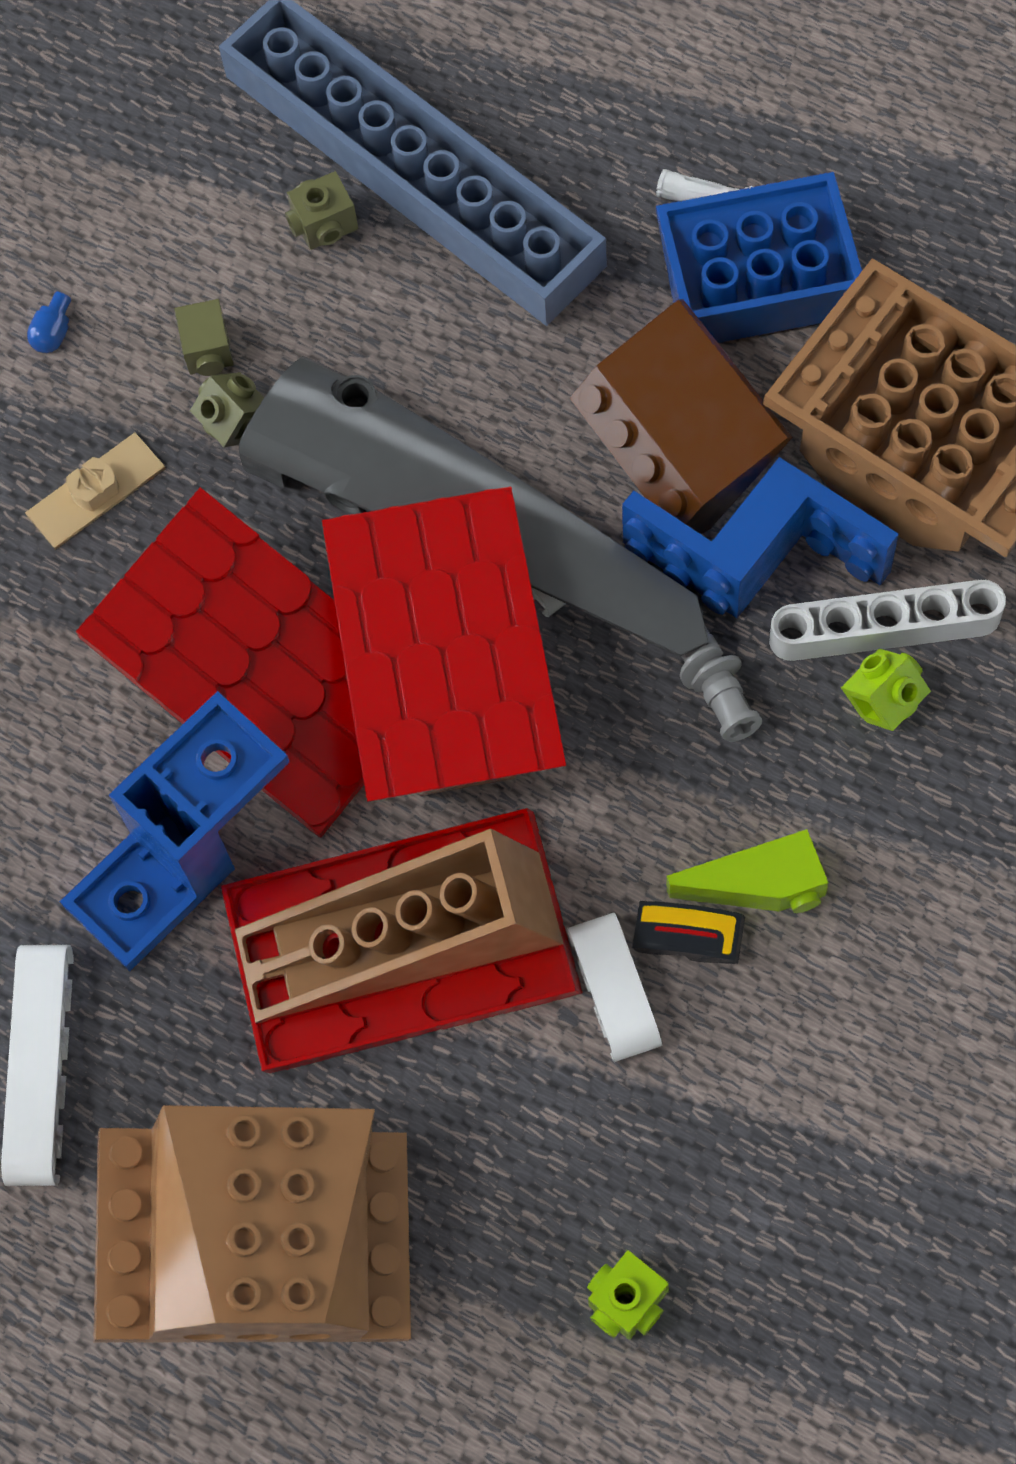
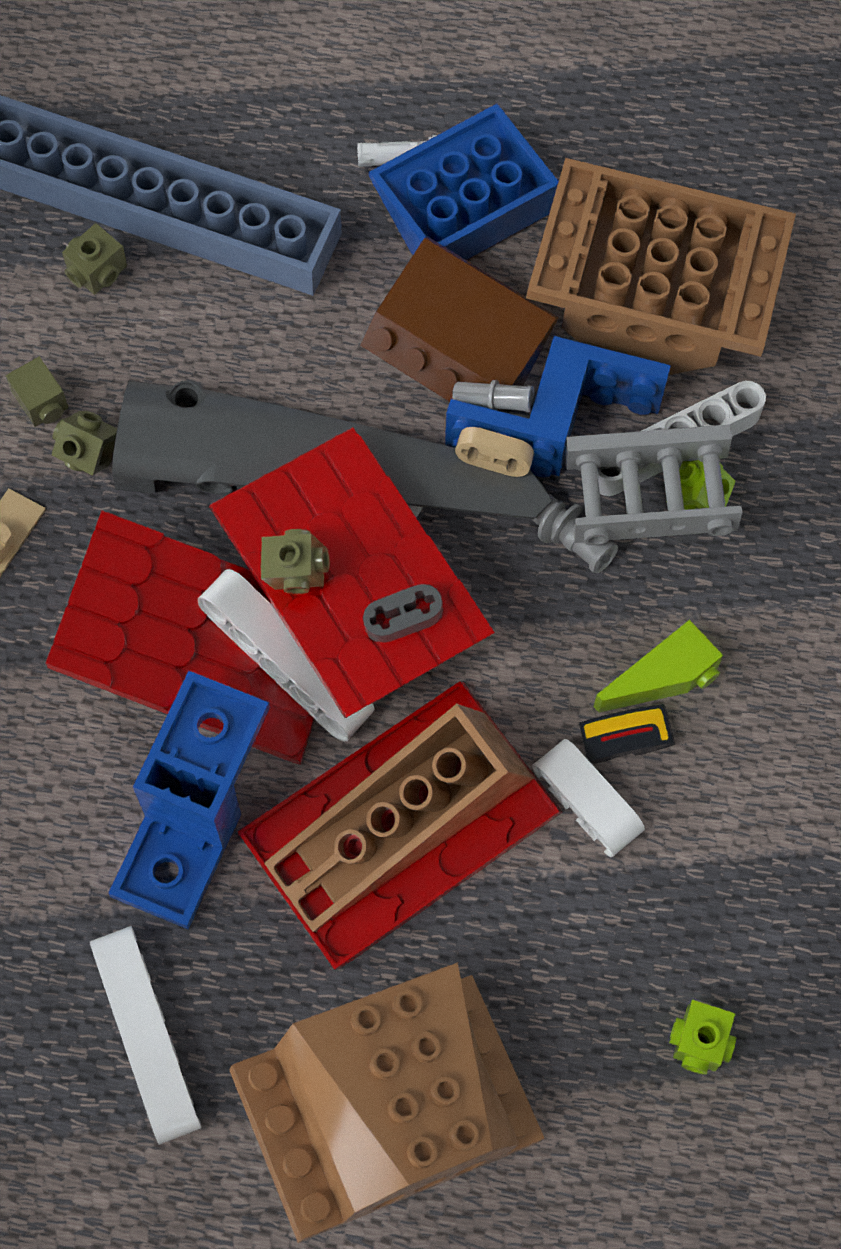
camera: 30 degrees left, 0 degrees up
(320, 674) = (264, 637): none -> white beam
(375, 611) = (294, 561): none -> olive brick
(472, 709) = (399, 604): none -> dark grey beam
(661, 565) = (494, 451): none -> tan beam
(685, 503) = (495, 395): none -> light grey axle
(816, 615) = (668, 449): none -> light grey fence

